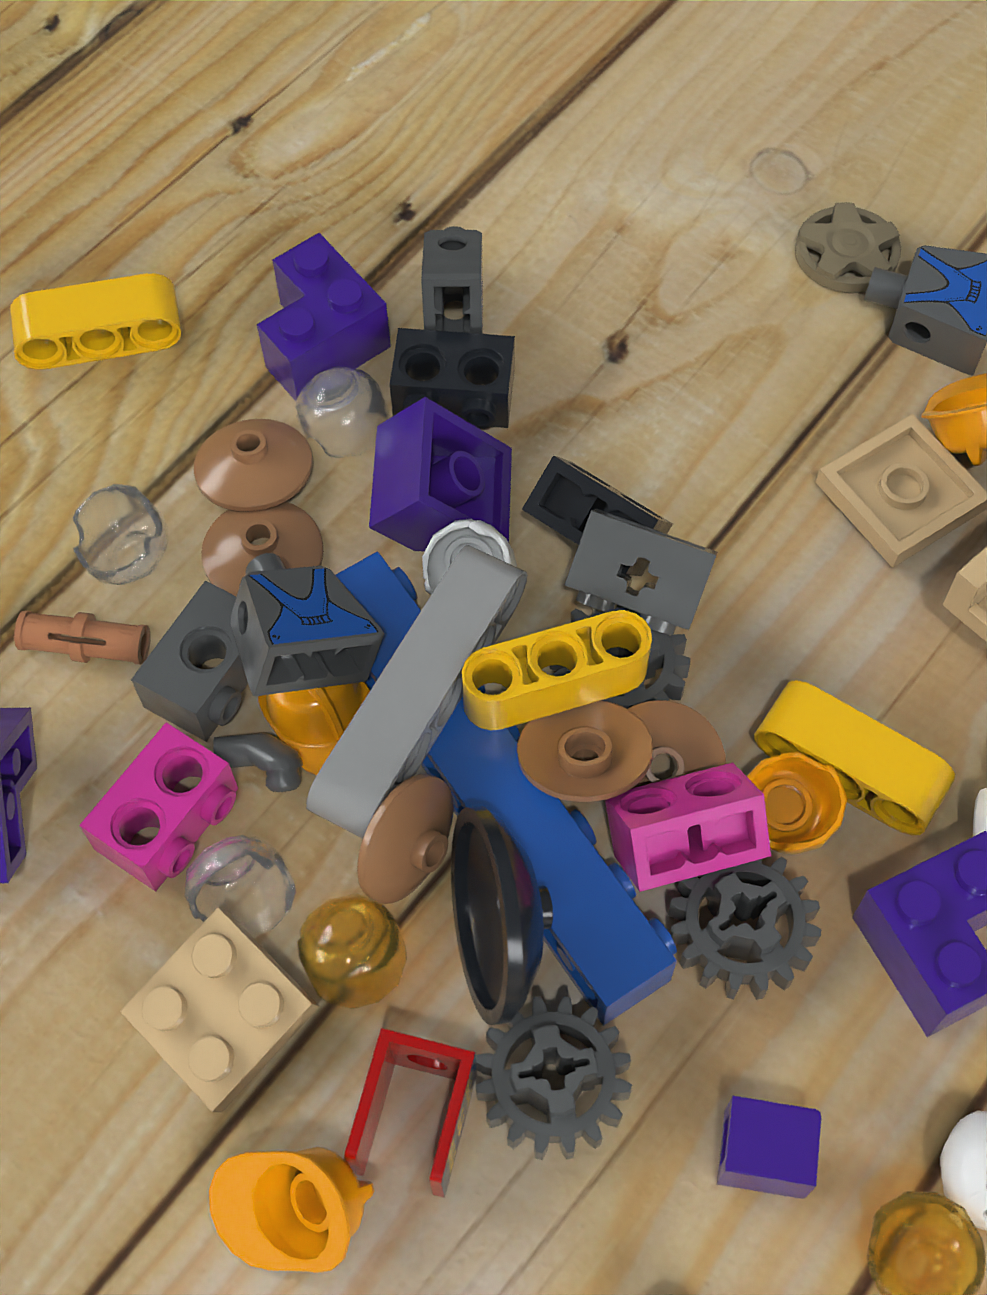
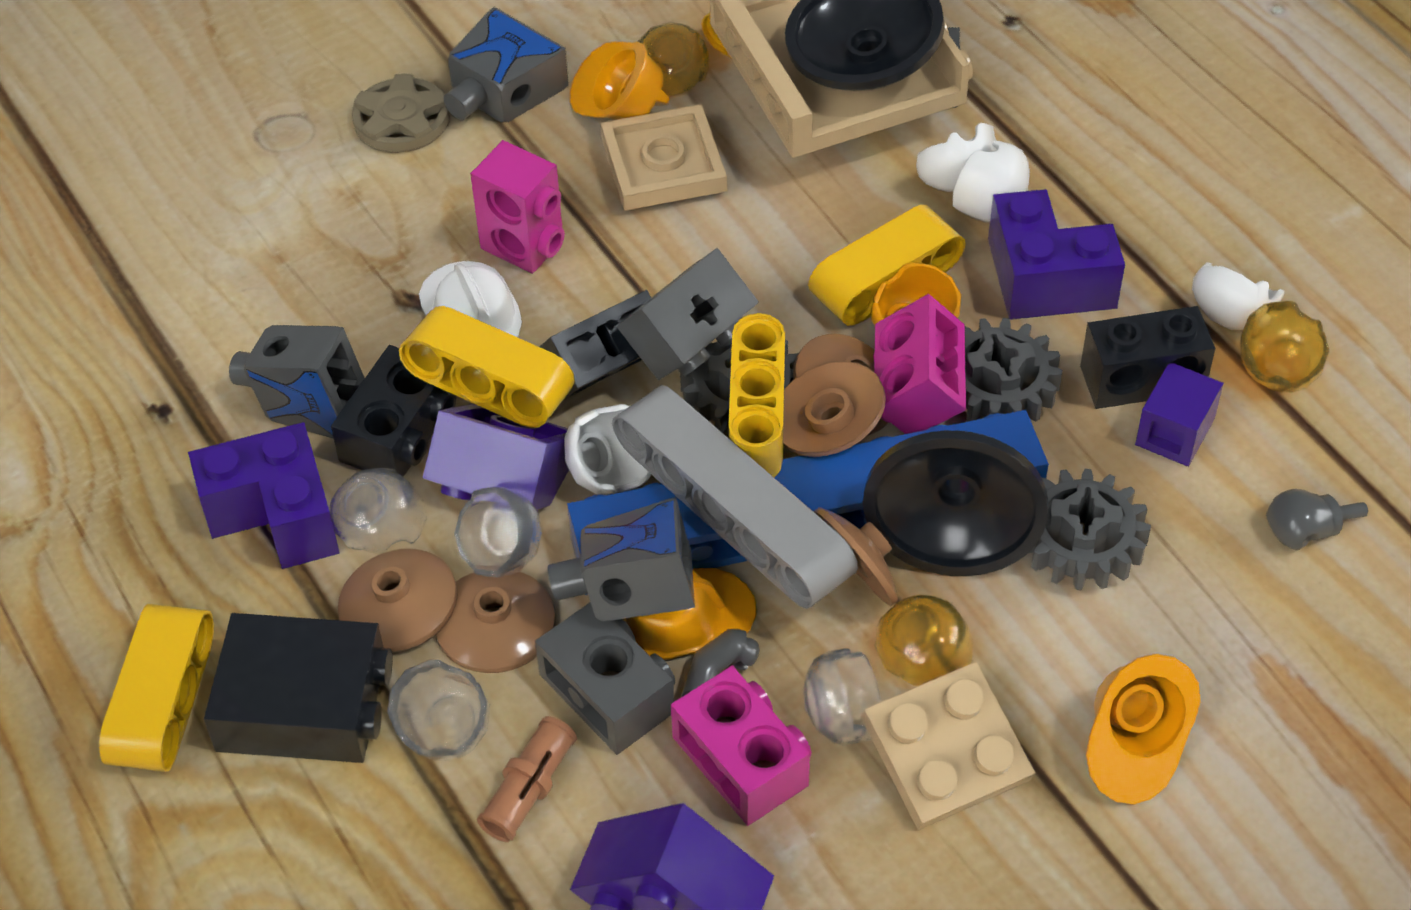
camera: 70 degrees left, 10 degrees down
(120, 418) = (298, 688): none -> black brick
(332, 510) = (498, 532): none -> clear hair
(425, 1056) = (1097, 597): red piece -> none
(503, 420) = (487, 366): none -> yellow beam
(625, 397) = (475, 291): none -> white piece
(740, 375) = (518, 206): none -> dark pink brick
(832, 1070) = (1130, 353): none -> black brick

